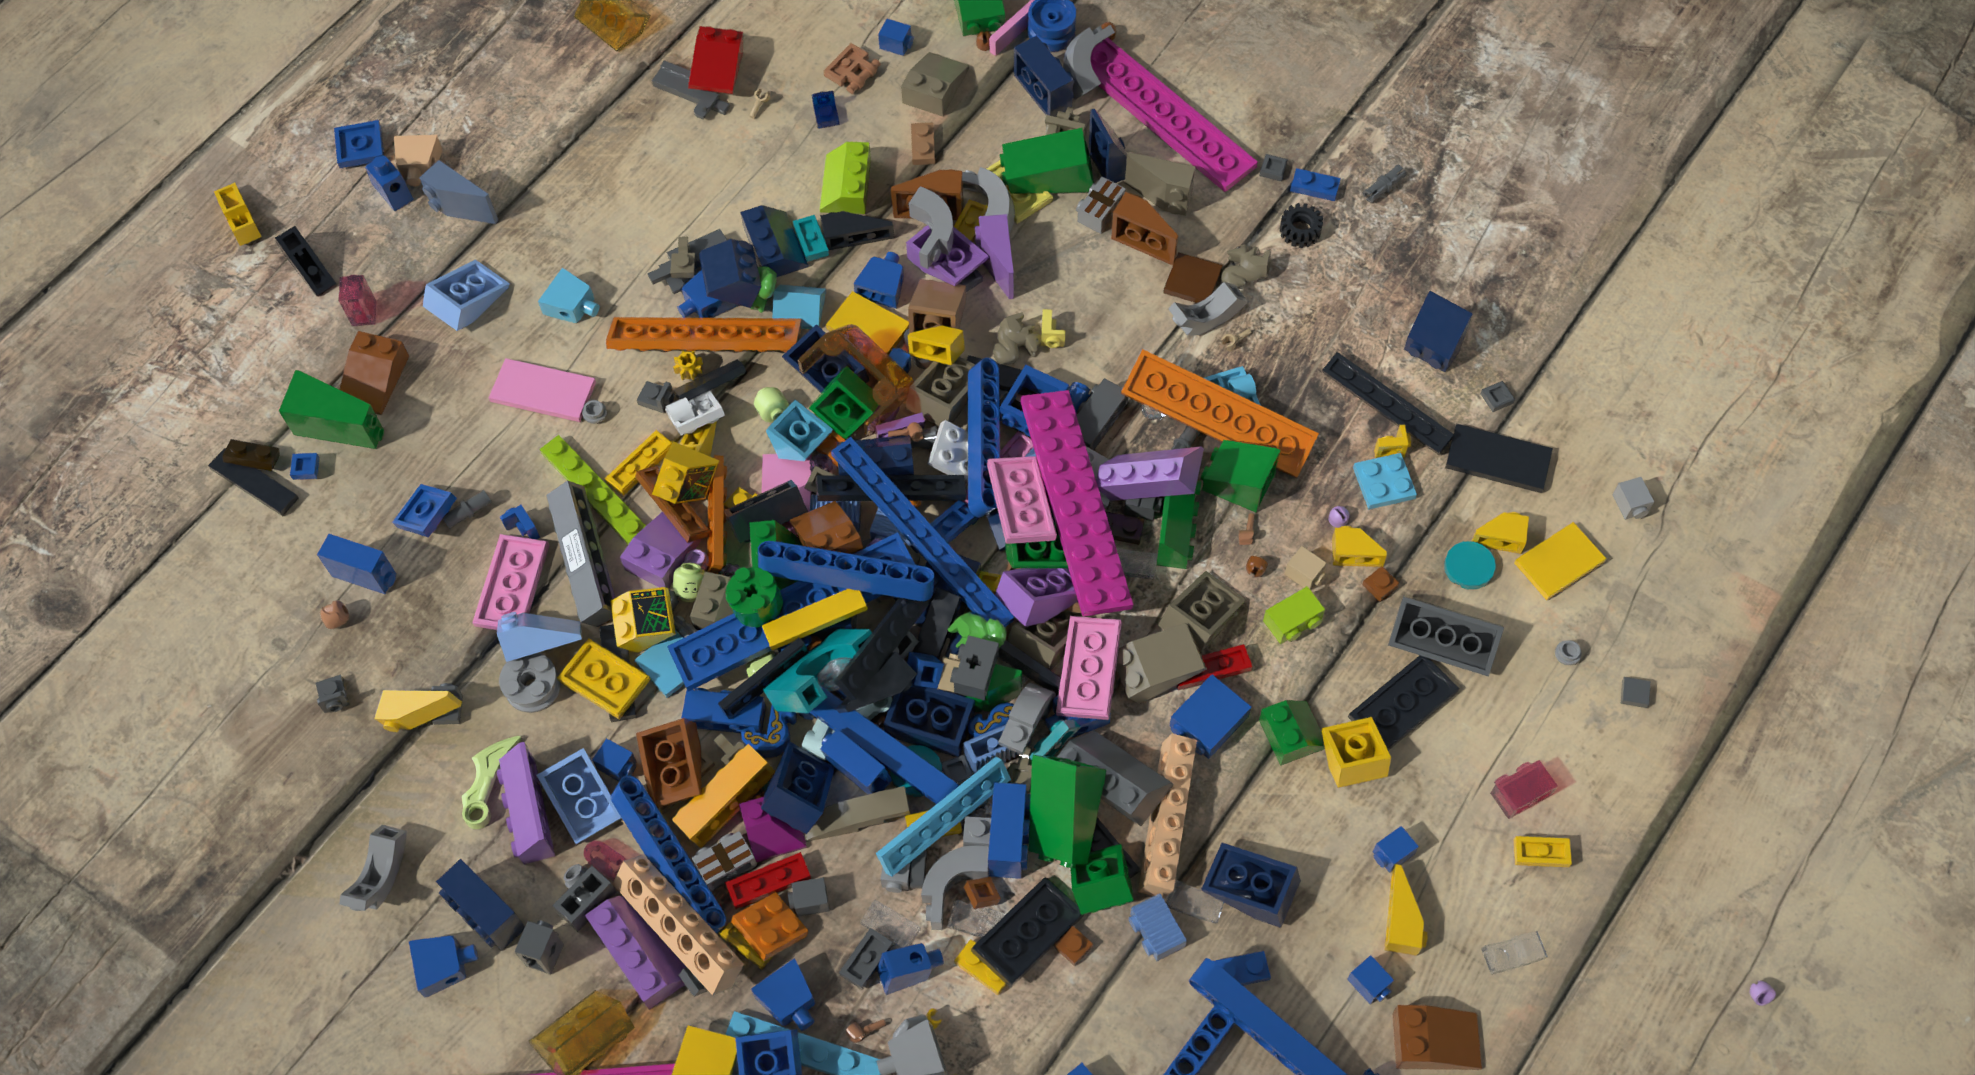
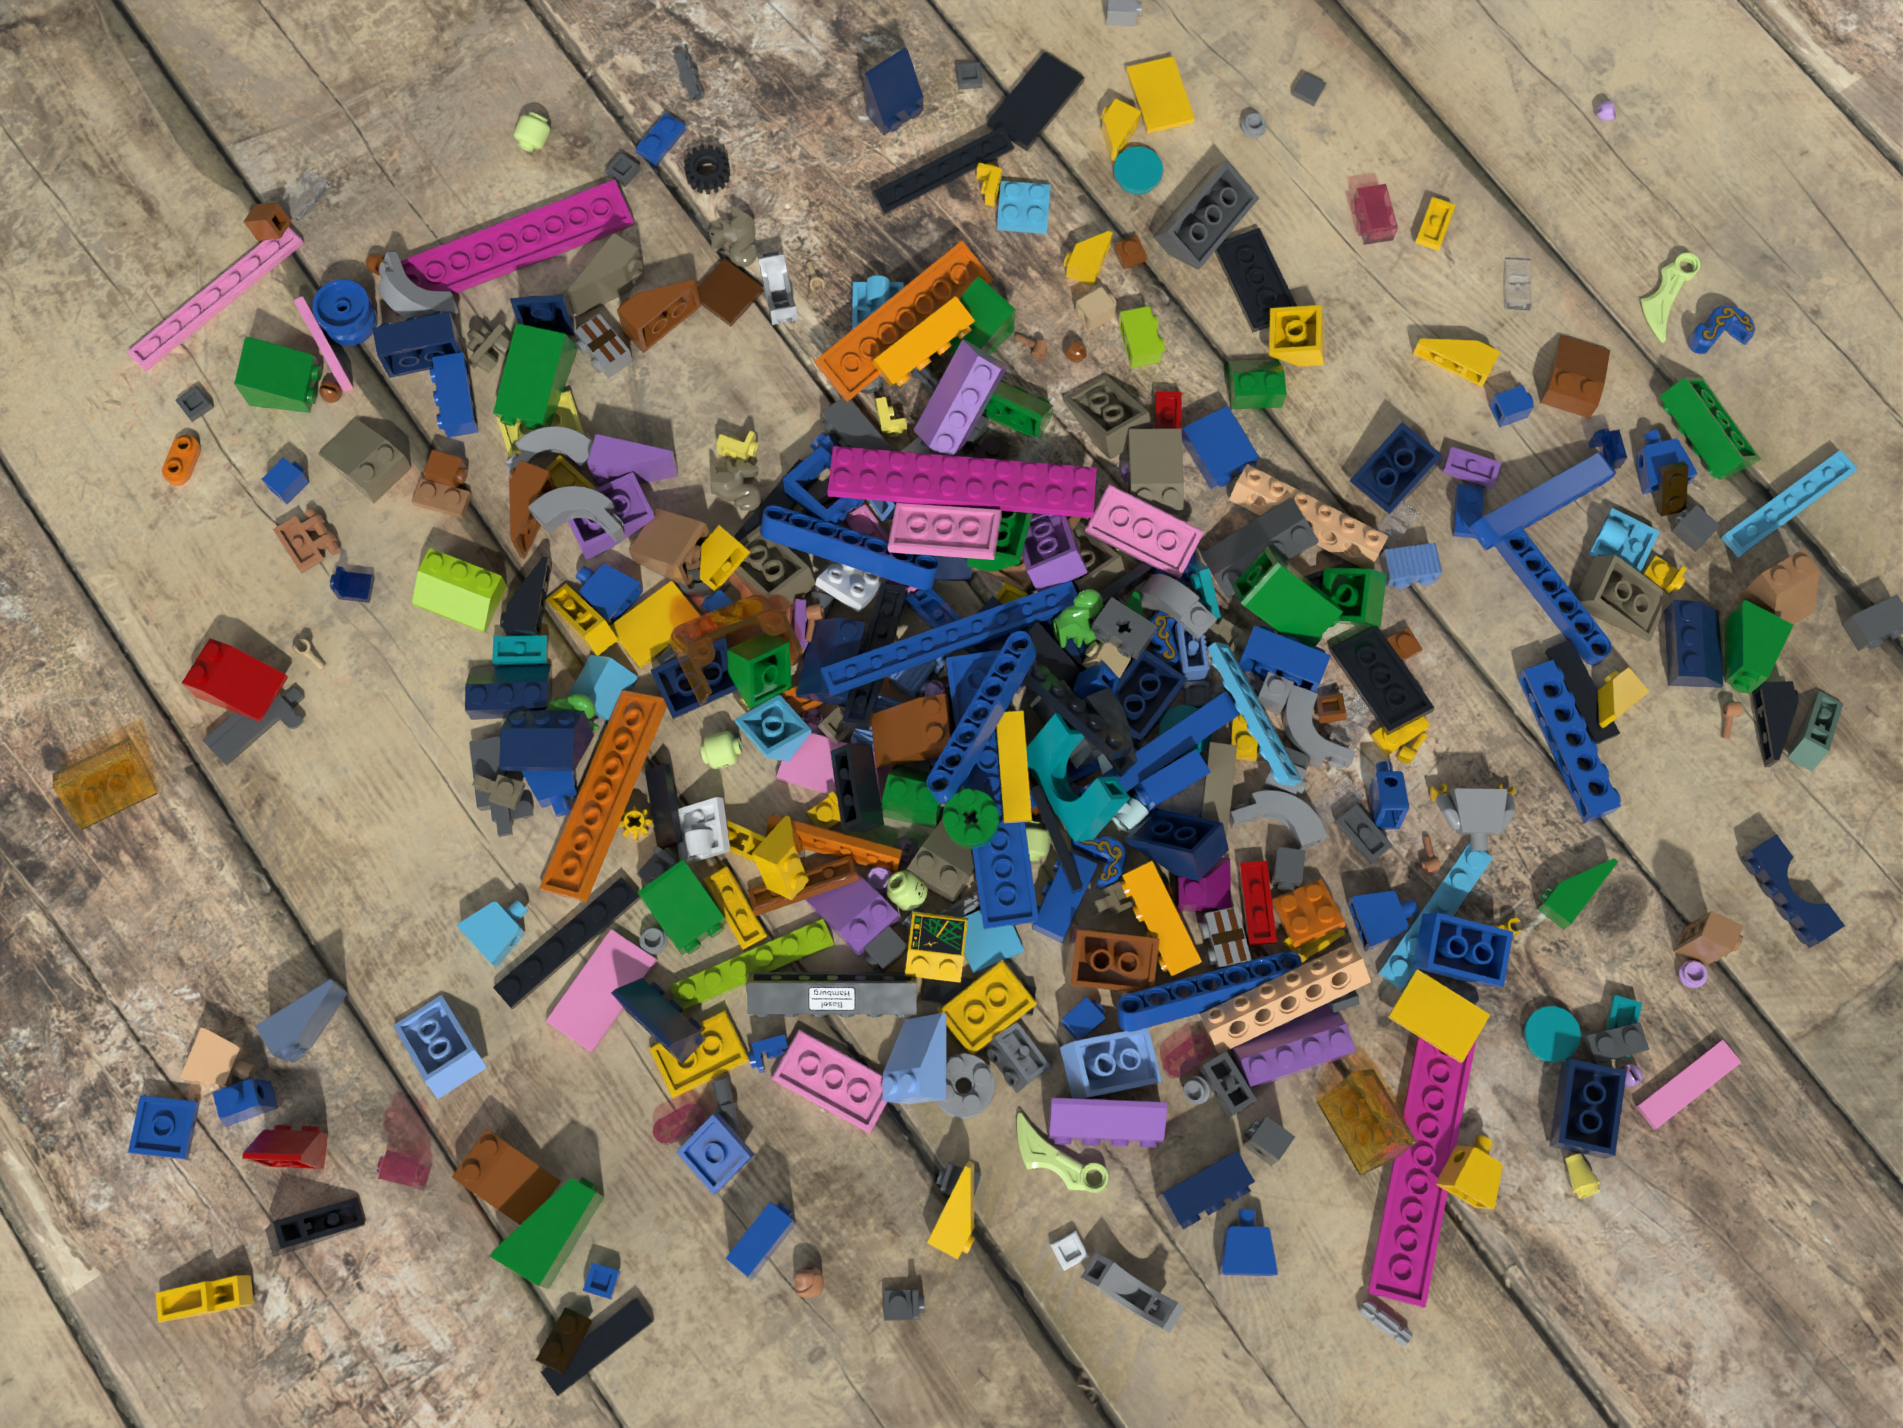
camera: 75 degrees left, 10 degrees up
(355, 219) = (289, 1148): none -> red slope
(408, 814) = (1069, 1251): none -> white tile
(449, 477) = (675, 1118): none -> clear pink beam
(508, 475) = (713, 1058): none -> yellow tile
(522, 429) = (660, 1017): none -> dark blue slope
(568, 718) = (1016, 1057): none -> dark grey bracket
(576, 353) = (566, 943): none -> black plate
(623, 418) = (682, 908): none -> green slope
(631, 579) = (885, 950): none -> dark grey brick
(831, 672) = (1081, 772): clear plate -> none
(845, 271) = (582, 619): none -> yellow slope
(863, 890) = (1286, 809): none -> light grey arch
(945, 135) = (445, 469): none -> dark orange brick
(961, 981) = (1407, 754): none -> yellow hand
(1013, 119) = (454, 395): none -> blue brick
(1121, 433) = (888, 424): none -> light yellow bracket
(1197, 427) = (923, 341): none -> light orange brick
(1274, 91) = (532, 132): none -> yellowish green head
(1287, 959) = (1471, 467): none -> medium lavender plate
(1335, 518) = (1049, 264): lavender hinge -> none
(1394, 849) = (1398, 340): blue brick -> none

